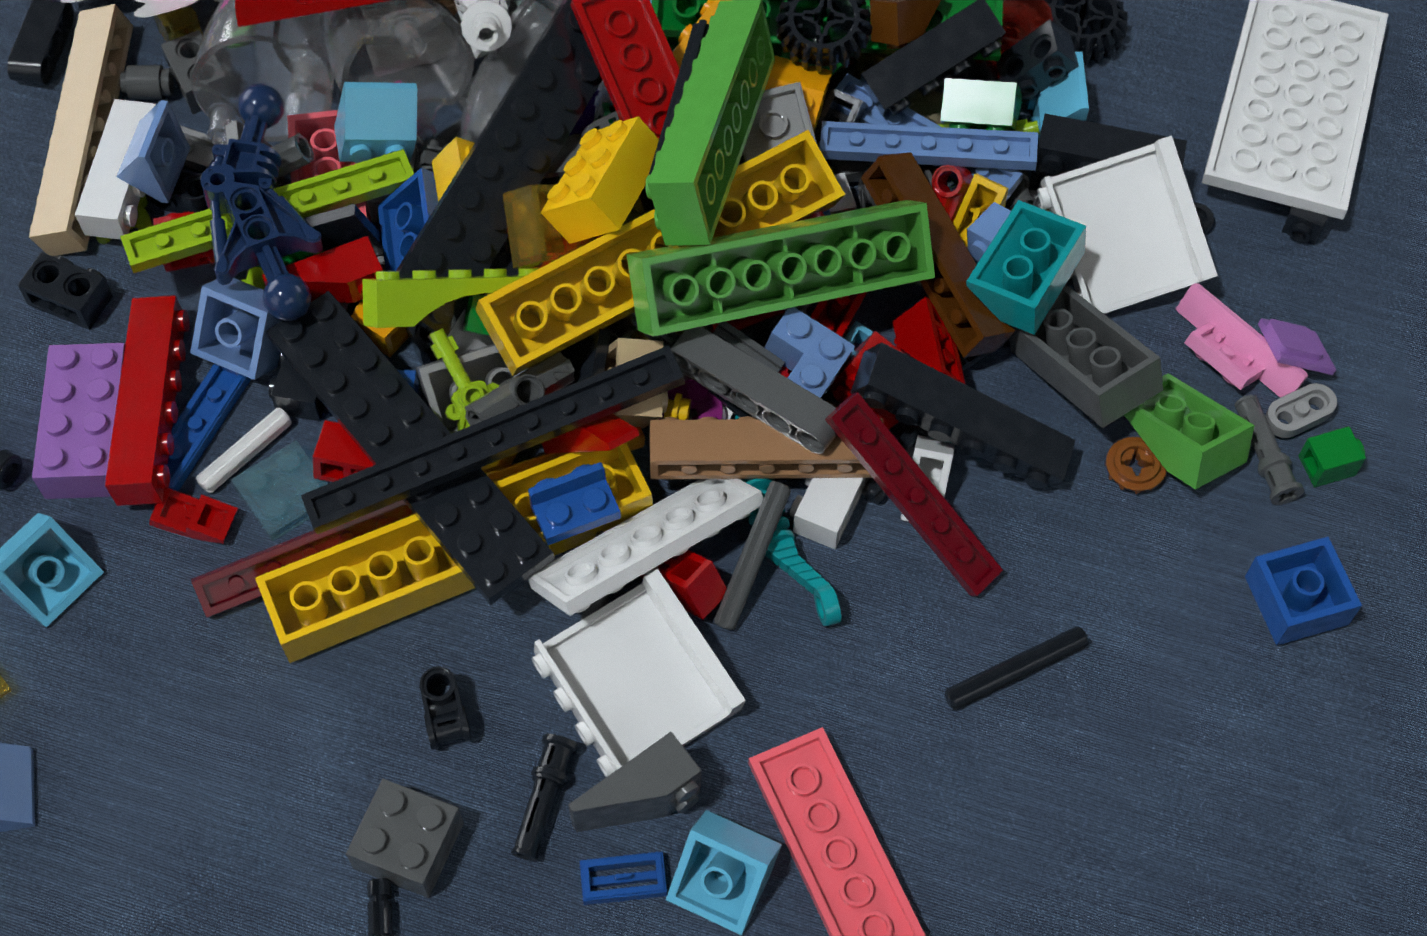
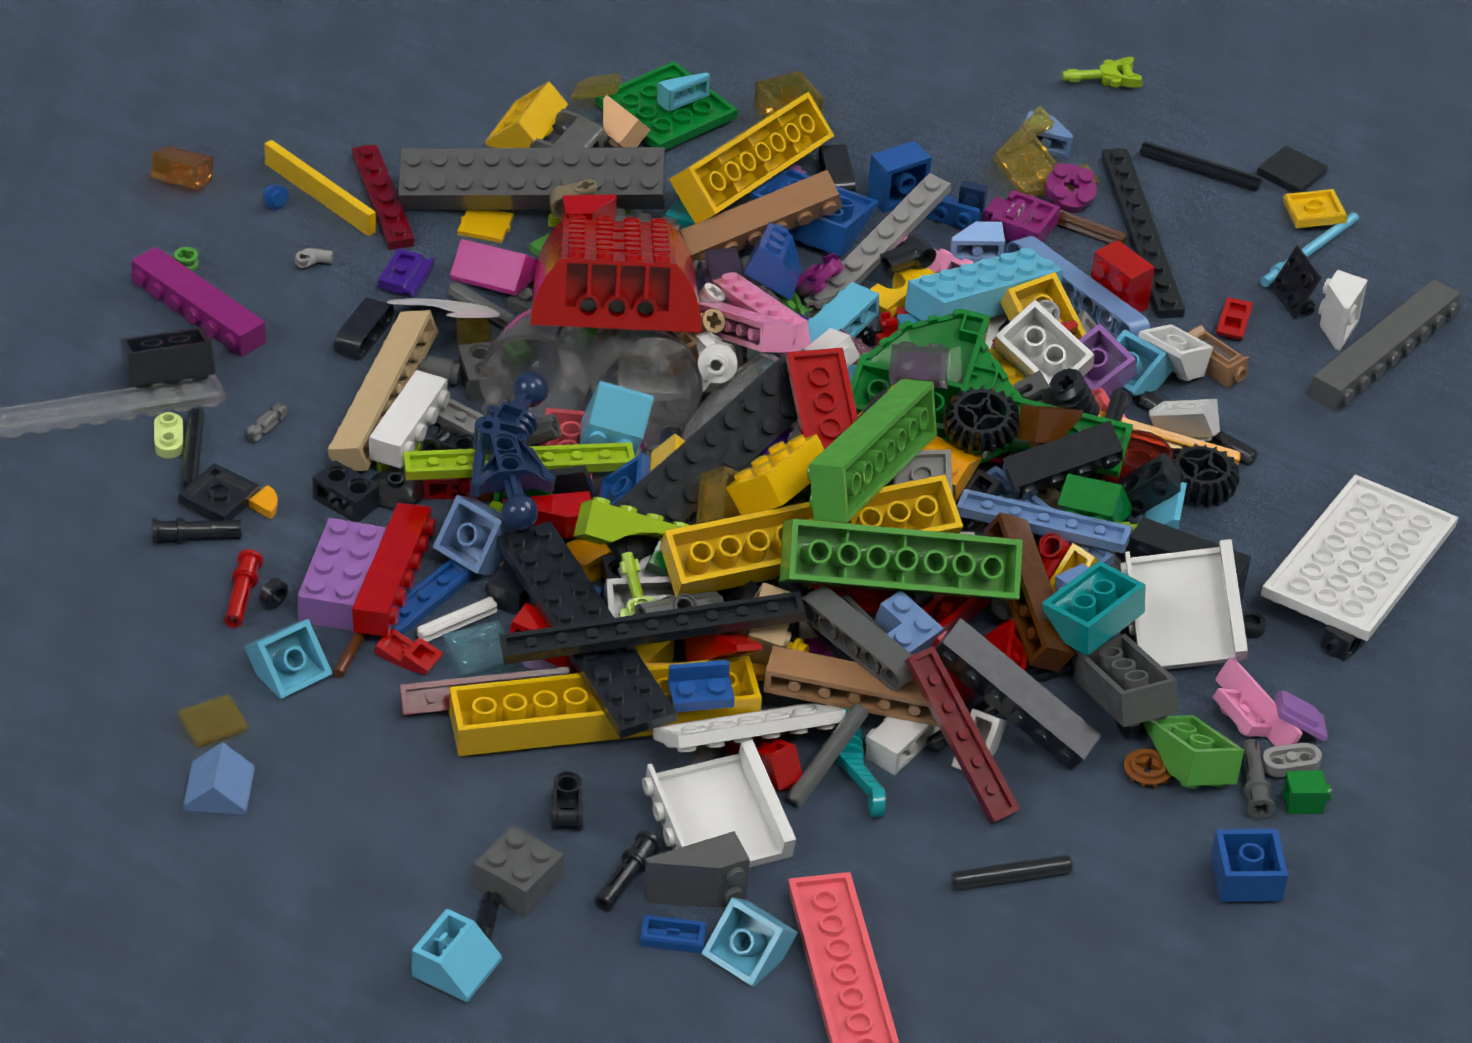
camera: 10 degrees right, 20 degrees down
(118, 539) = (348, 654): none -> reddish brown bar
(120, 275) = (396, 489): none -> black dish
(155, 154) = (440, 410): medium blue slope -> none

